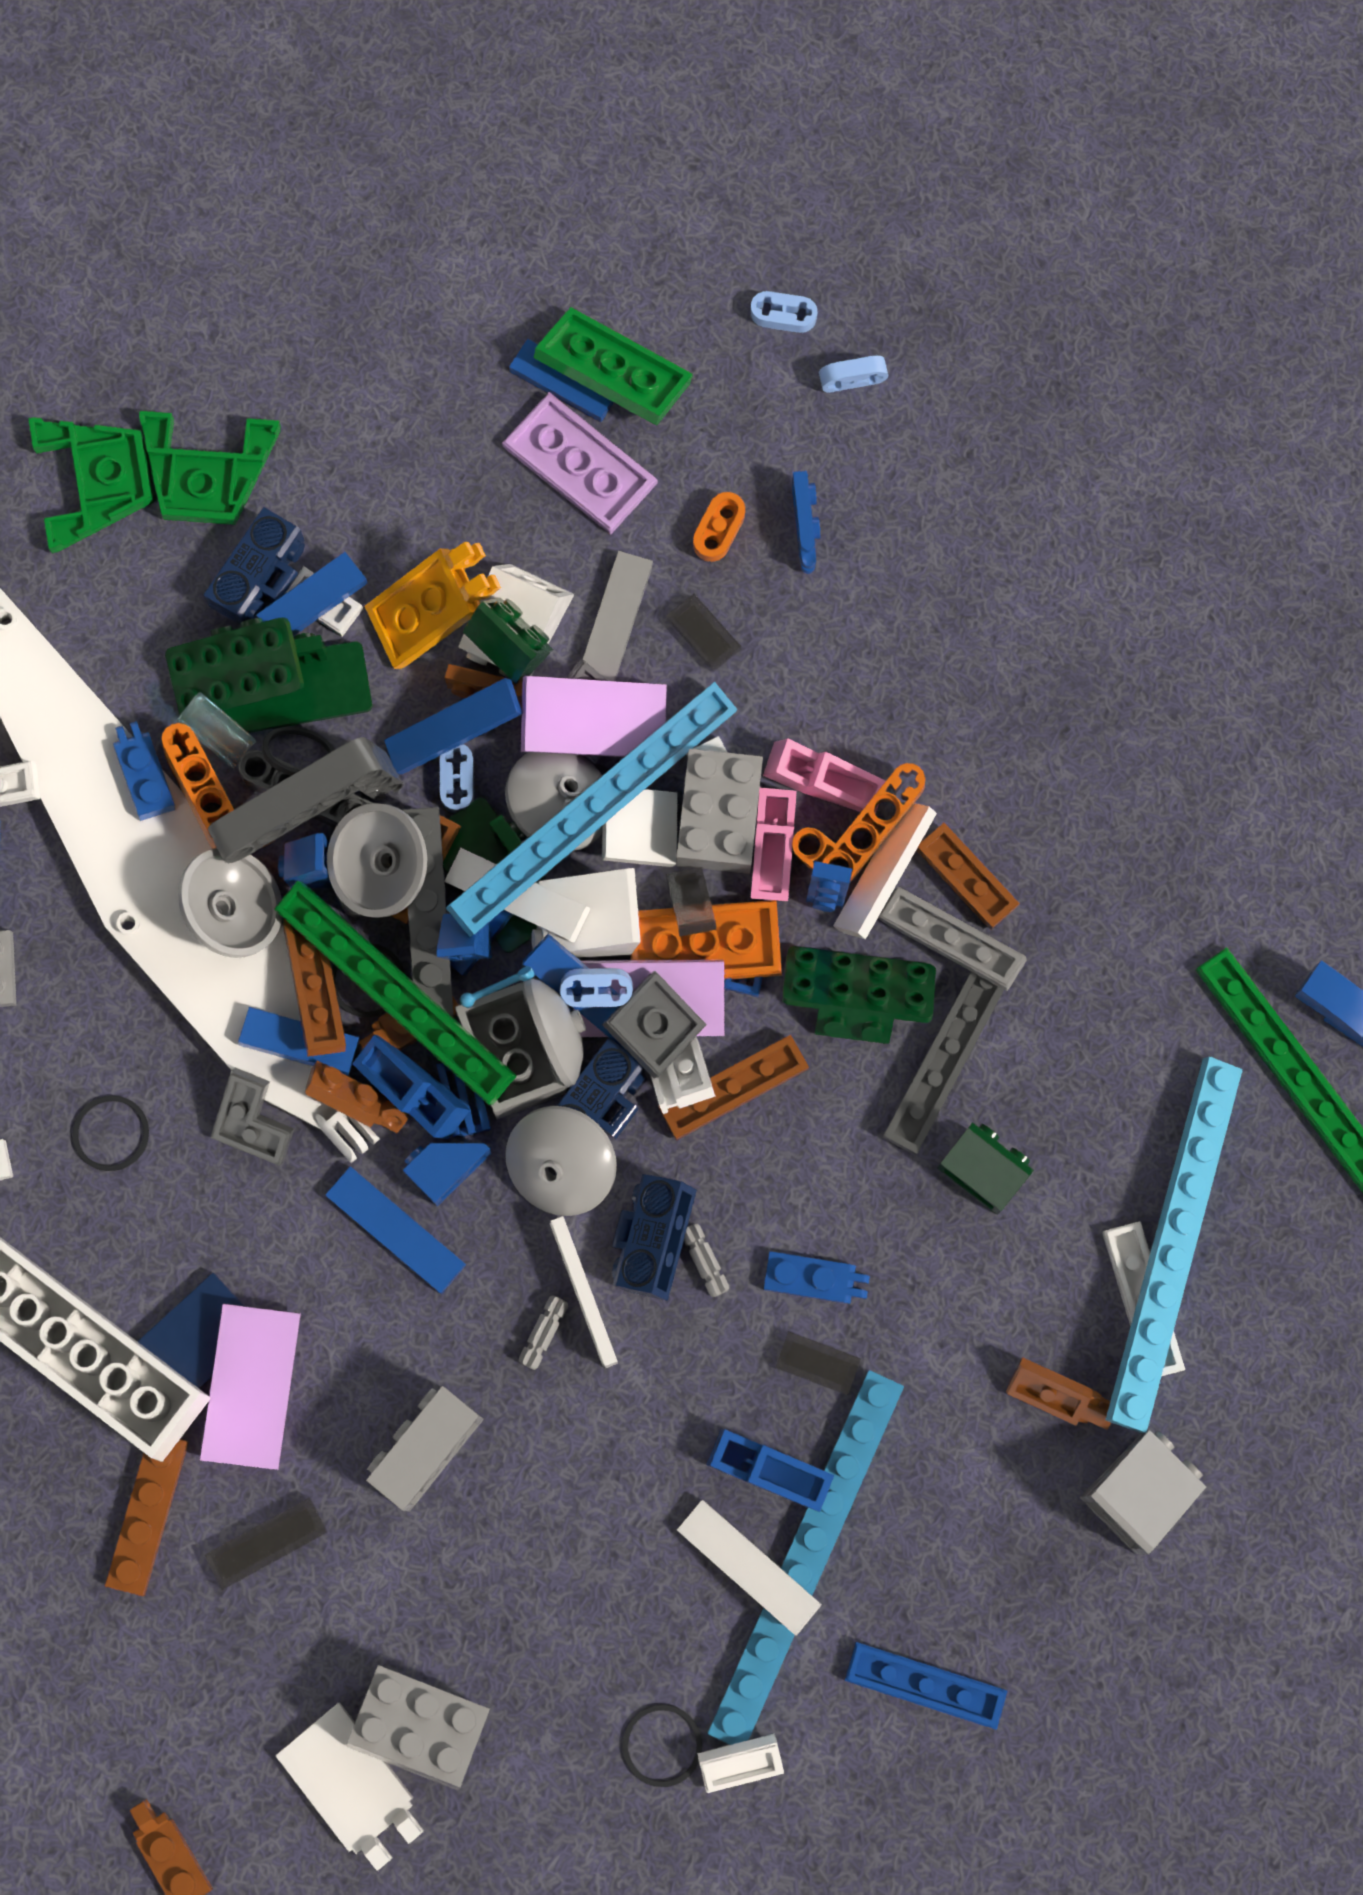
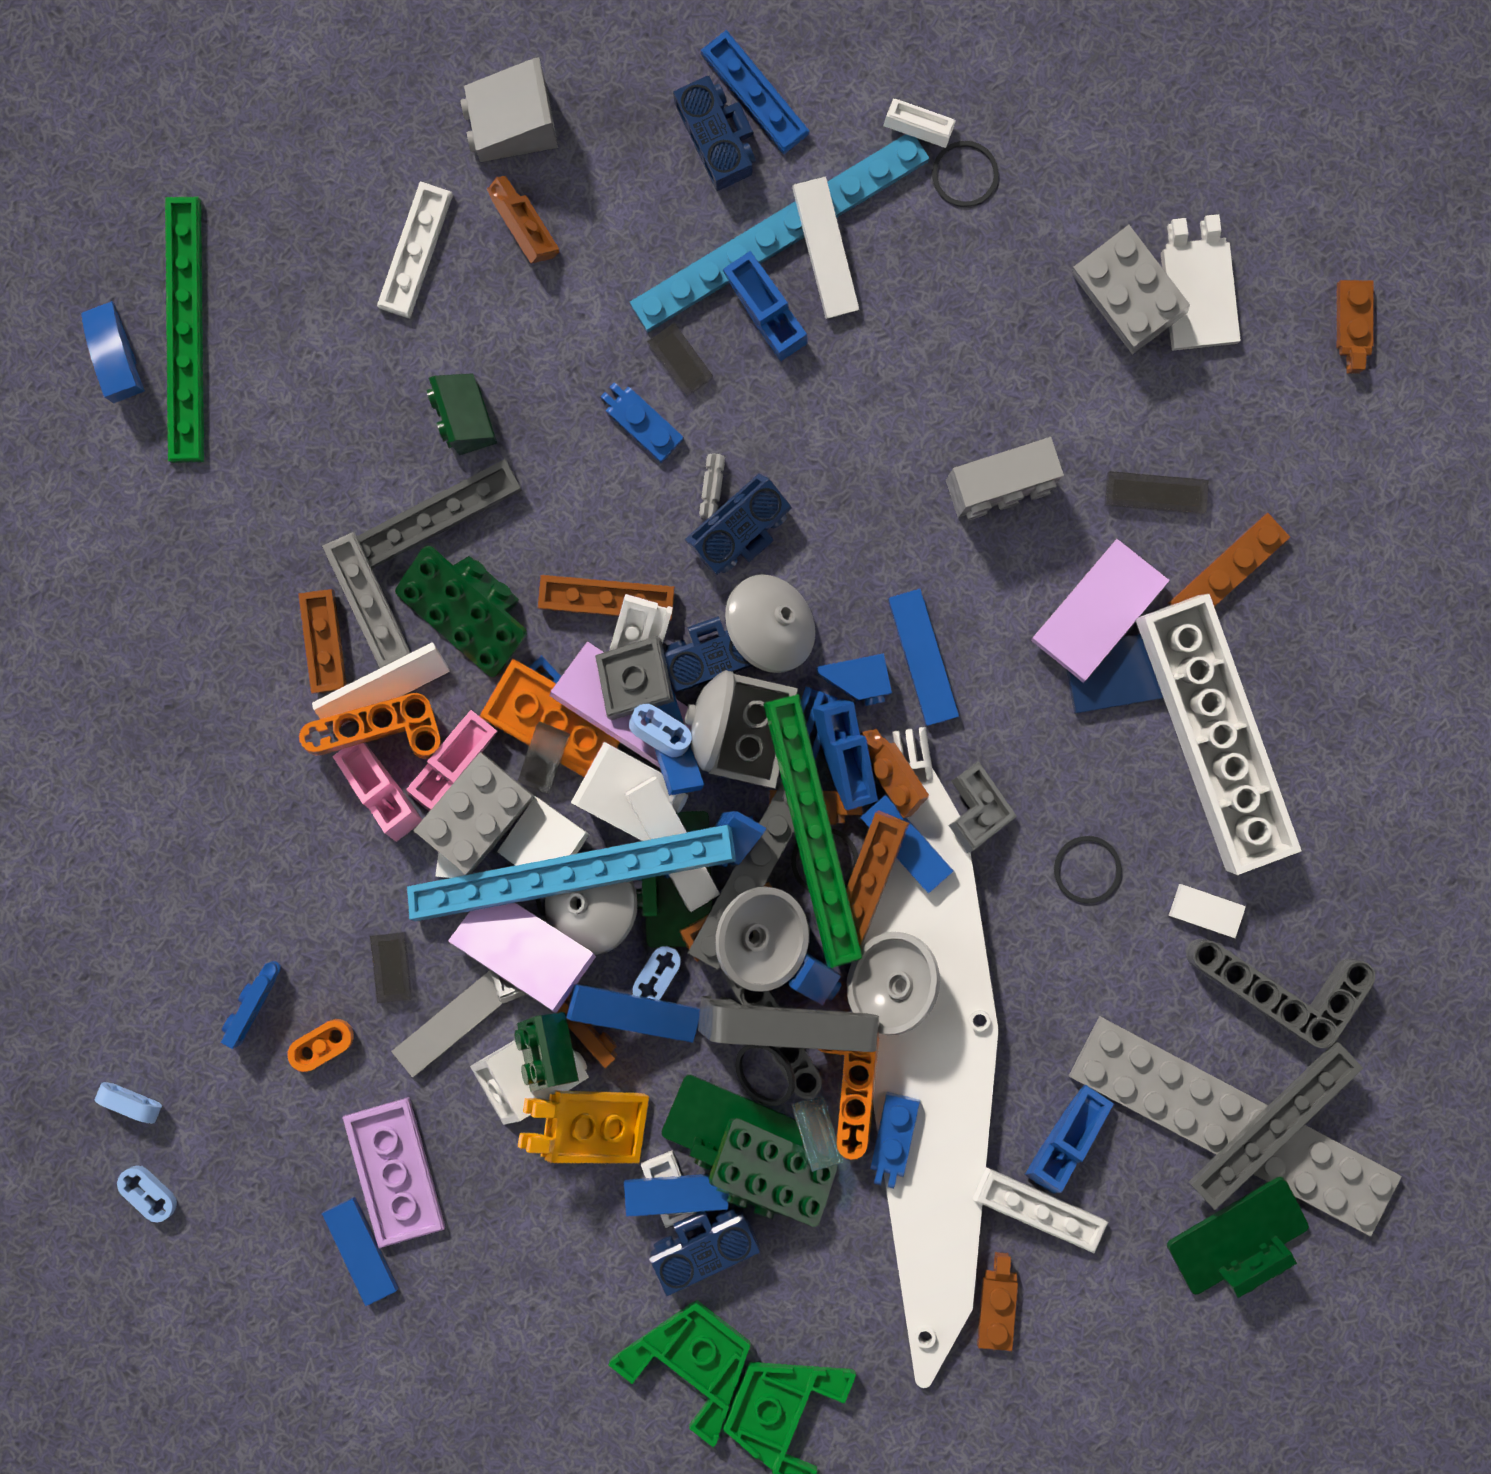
camera: 150 degrees left, 10 degrees up
(468, 999) = (707, 775): dark azure hinge -> none
(543, 1332) = (863, 511): light grey axle -> none
(583, 1292) = (816, 518): white tile -> none
(613, 366) = (313, 1235): green plate -> none
(828, 886) = (433, 693): blue plate -> none
(922, 1599) = (705, 120): none -> dark blue piece
(1174, 1245) = (362, 271): medium azure plate -> none

